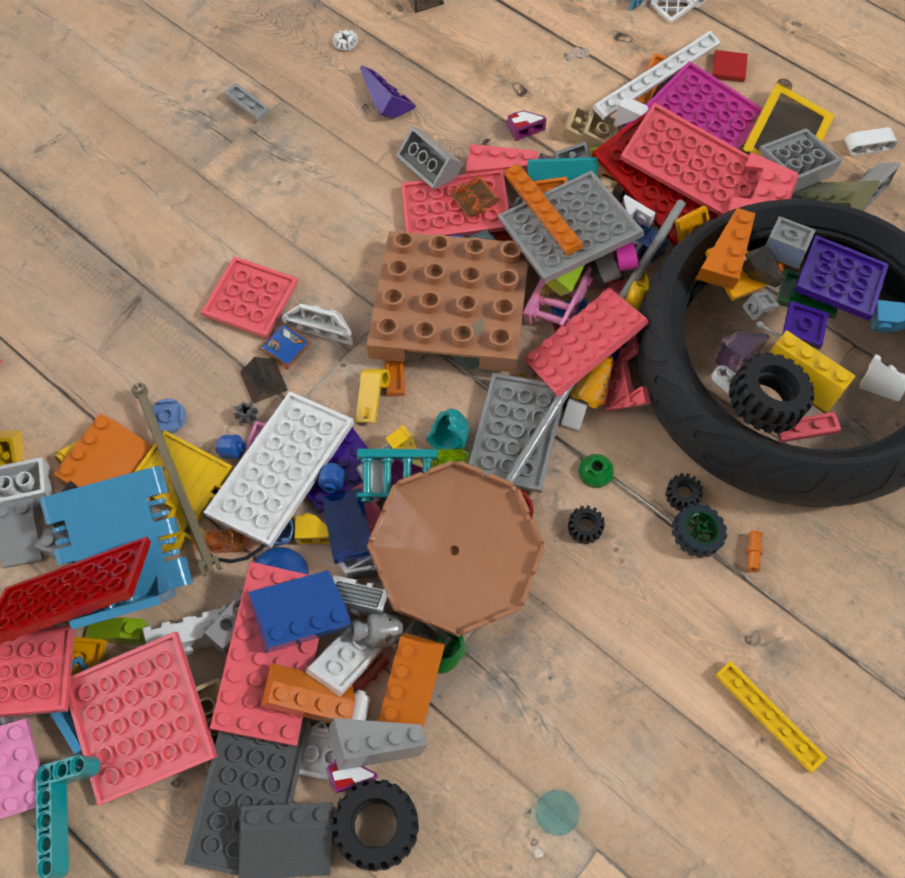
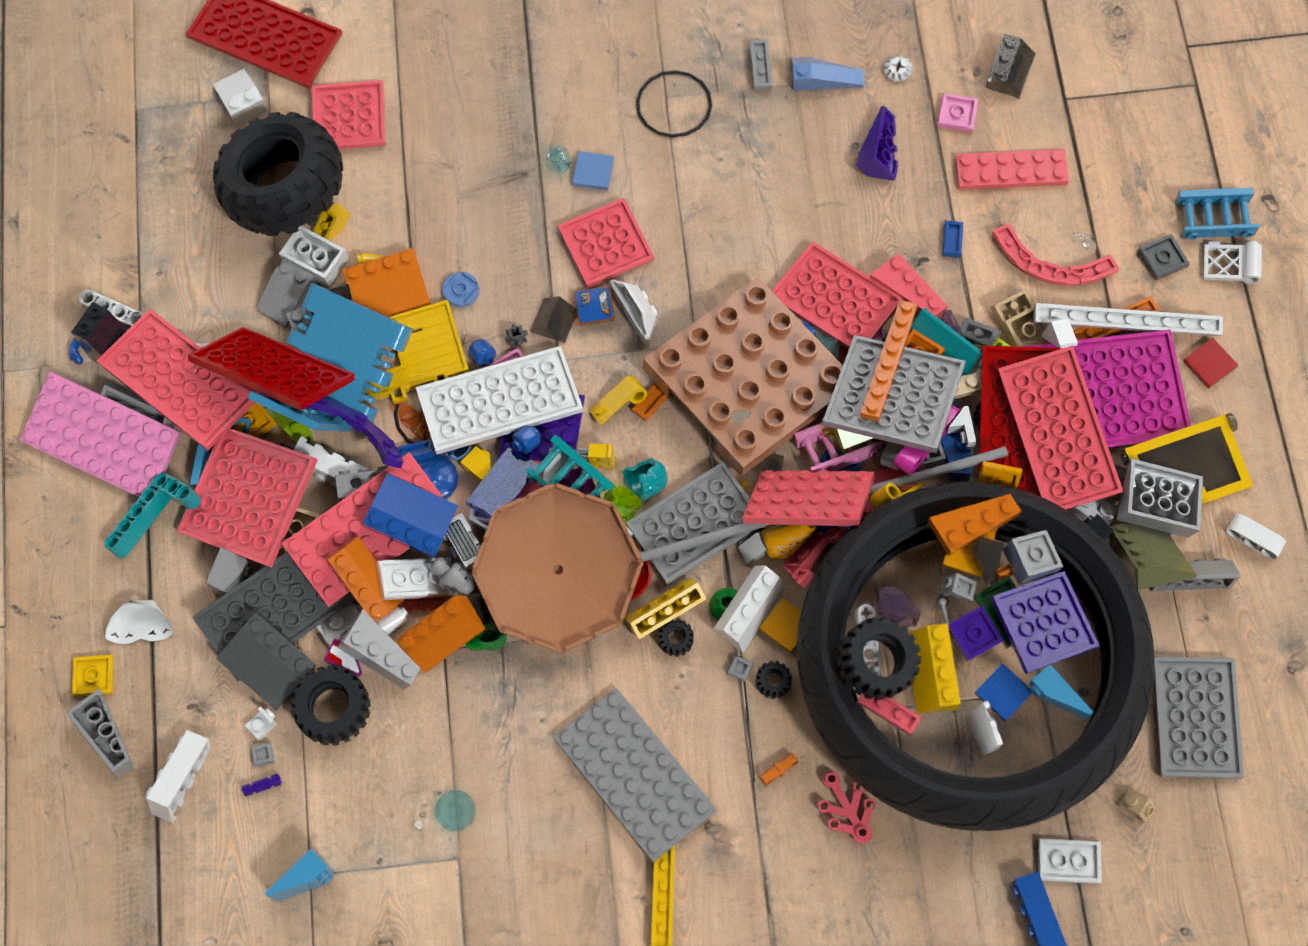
camera: 45 degrees right, 5 degrees up
(157, 267) = (559, 159): none -> clear light blue head
(180, 798) = (227, 572): none -> light grey slope
(183, 574) = (382, 443): none -> dark purple plate
(191, 257) = (593, 171): none -> medium blue tile
(207, 559) = (389, 426): dark tan hinge -> none
(208, 198) = (679, 134): none -> black piece
(253, 554) = (419, 450): none -> blue tile
(293, 82) = (819, 74): none -> medium blue wedge
(413, 38) = (957, 112): none -> bright pink tile
(429, 158) = (853, 238): light grey slope -> none
(474, 196) = (854, 303): clear orange slope -> none
(484, 46) = (1012, 169): none -> coral plate
(492, 114) = (952, 239): none -> blue tile
(525, 124) = (968, 271): magenta slope -> none
(526, 346) = (773, 462): none -> clear smoke plate
(559, 508) = (665, 608): none -> yellow brick
(572, 88) = (1047, 271): none -> coral plate
(615, 455) = (750, 607): none -> white slope
(634, 28) = (1163, 257): none -> dark grey tile
(651, 448) = (783, 625): none -> light orange tile
(651, 506) = (740, 668): none -> light grey tile
(662, 652) = (635, 774): none -> light grey plate
(690, 540) = (771, 715): black wheel -> none
(774, 183) = (1095, 503): coral wing -> none
(828, 534) = (848, 810): none -> coral plant
(859, 348) = (1003, 692): none -> blue tile

